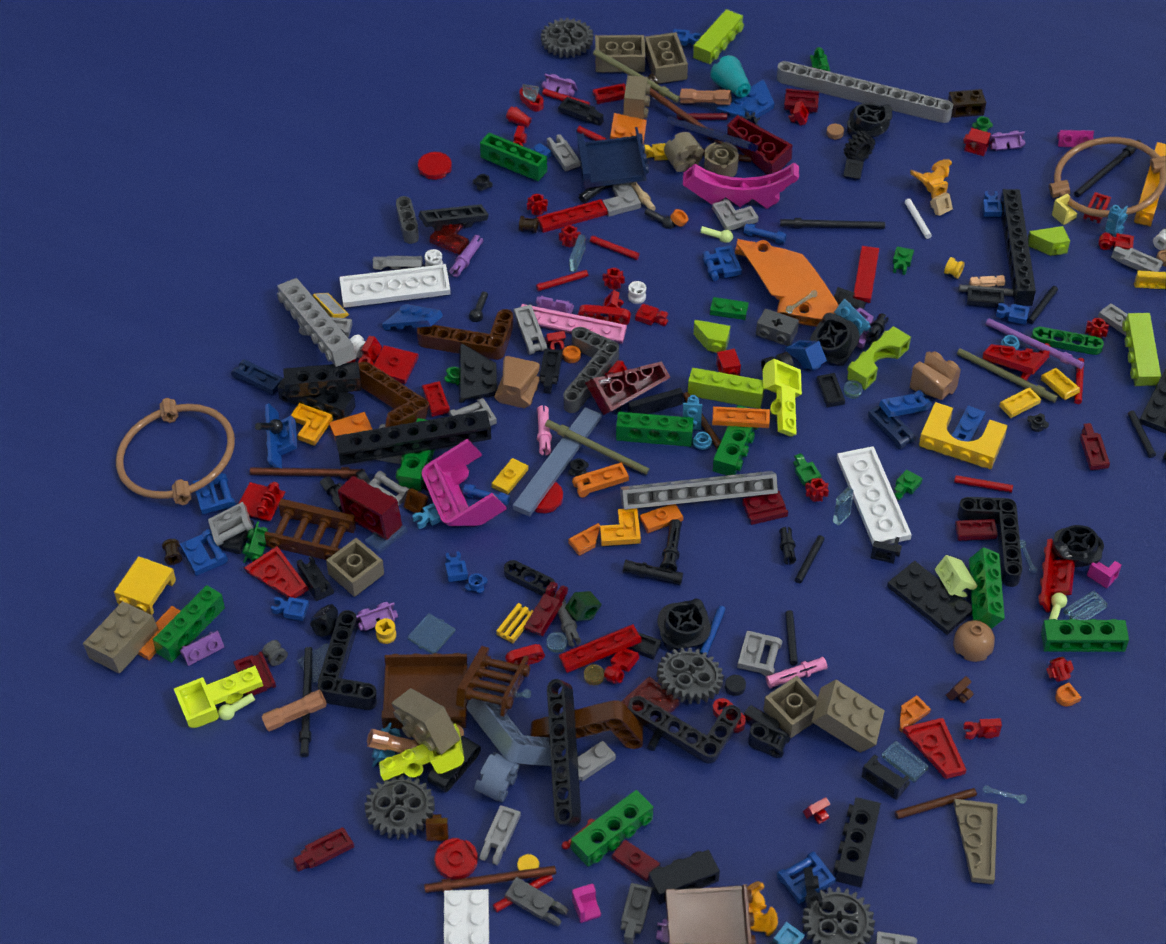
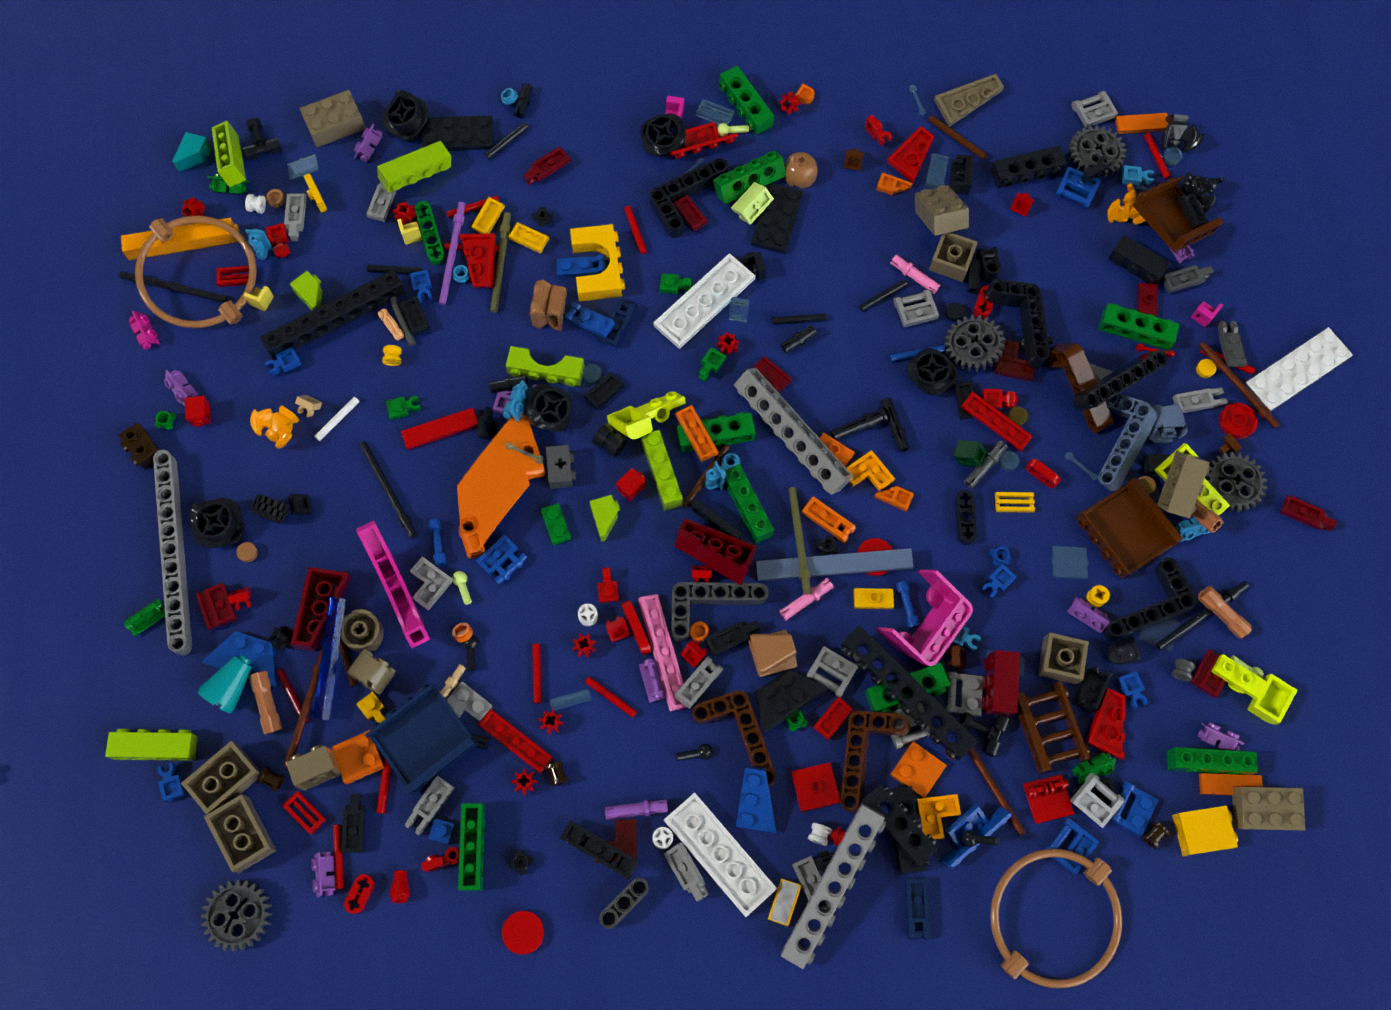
camera: 125 degrees left, 20 degrees up
(370, 350) = (818, 816): red plate -> none
(477, 670) = (1091, 491): reddish brown fence -> none
(530, 92) = (356, 895): clear light blue tile -> none
(546, 609) = (992, 481): dark red hinge -> none
(664, 91) = (281, 750): olive bar -> none
(807, 353) = (577, 426): blue arch -> none
(1076, 321) = (410, 232): none -> light yellow panel

